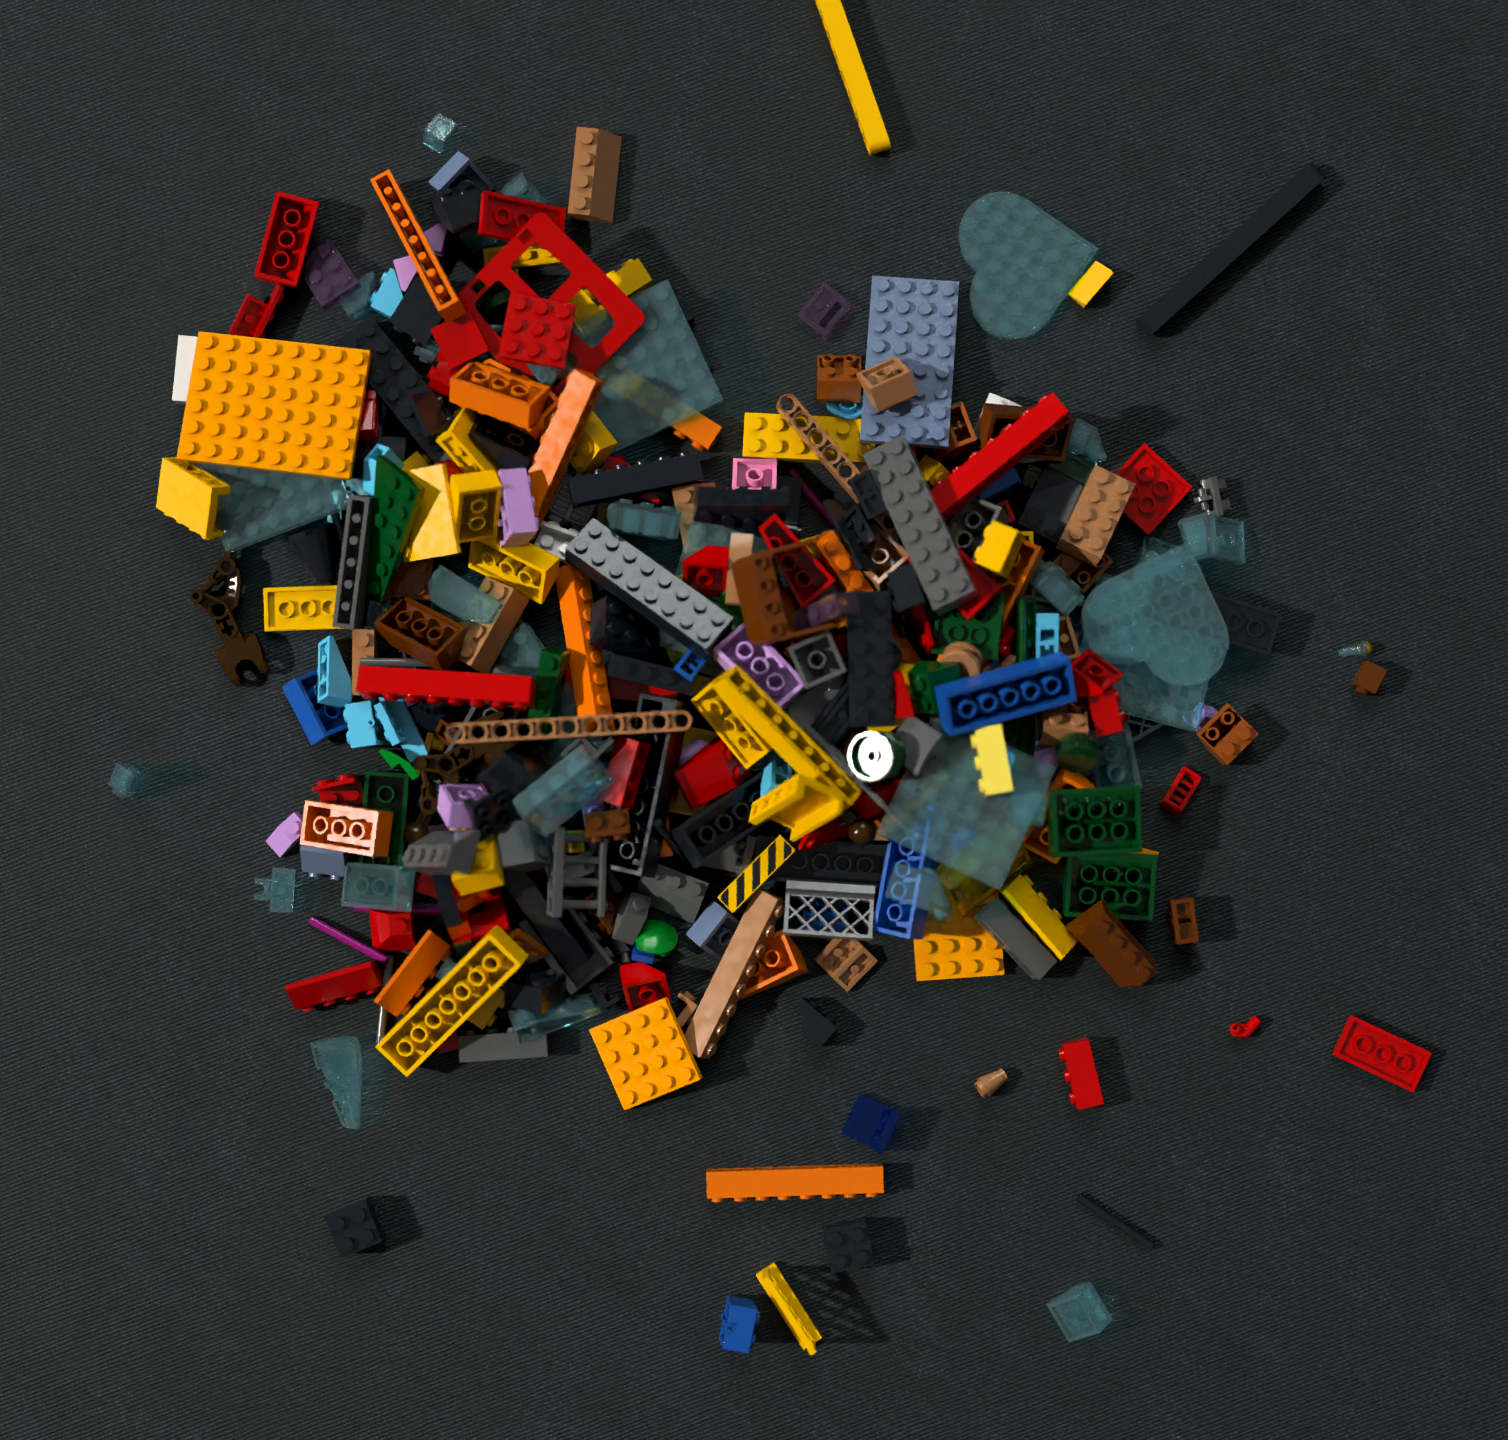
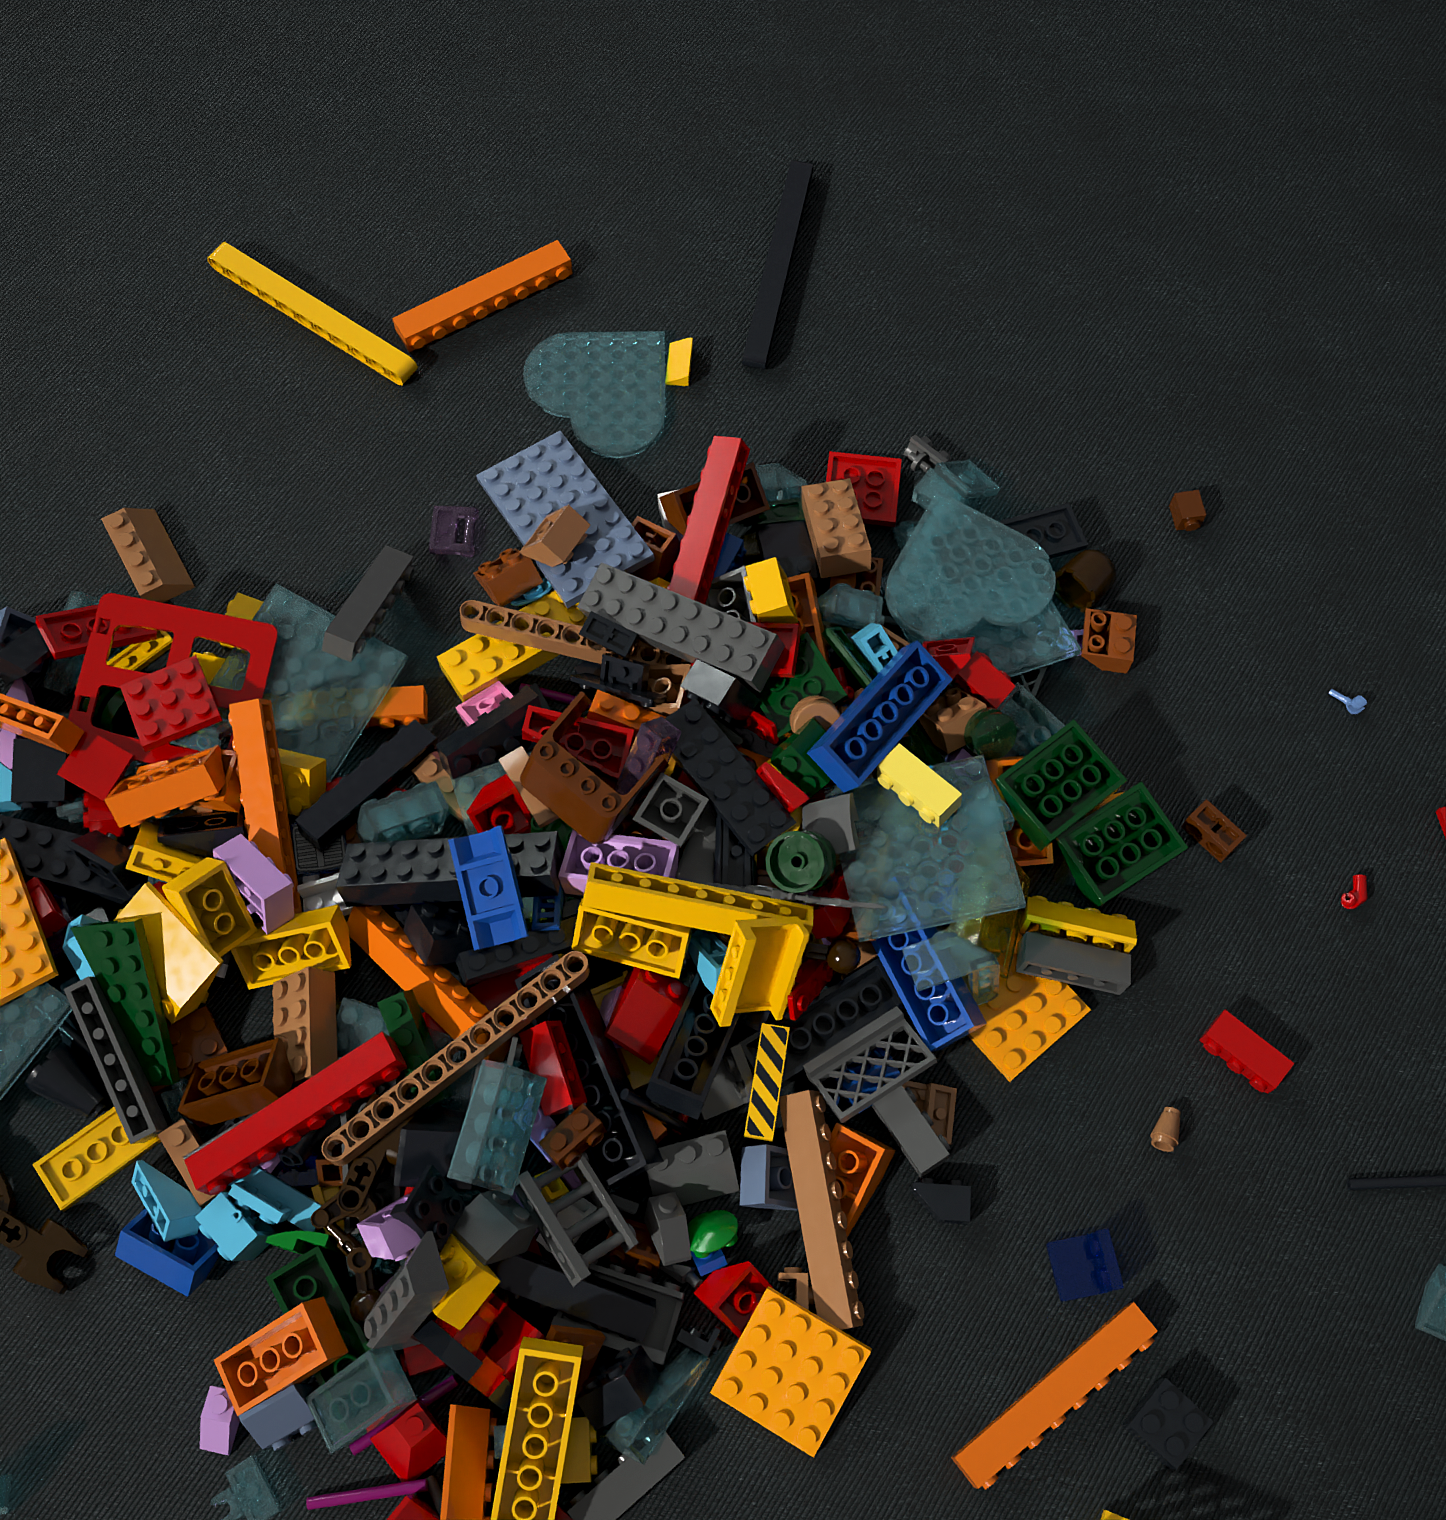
camera: 40 degrees left, 20 degrees down
(346, 791) = (253, 1314): red bracket -> none
(459, 599) = (258, 1017): clear light blue wedge -> none
(661, 627) = (489, 888): none -> blue piece
(722, 340) = (368, 604): none -> dark grey brick
(826, 969) = (912, 1130): none -> dark grey brick
(982, 118) = (483, 296): none -> orange brick
(1113, 946) = (1172, 900): reddish brown slope -> none
(1171, 806) = (1109, 736): red slope -> none
(1247, 678) = (1085, 579): none -> dark brown cylinder
(1360, 904) = (1353, 705): none -> medium blue hand
(1363, 649) = (1161, 492): clear light blue piece -> none

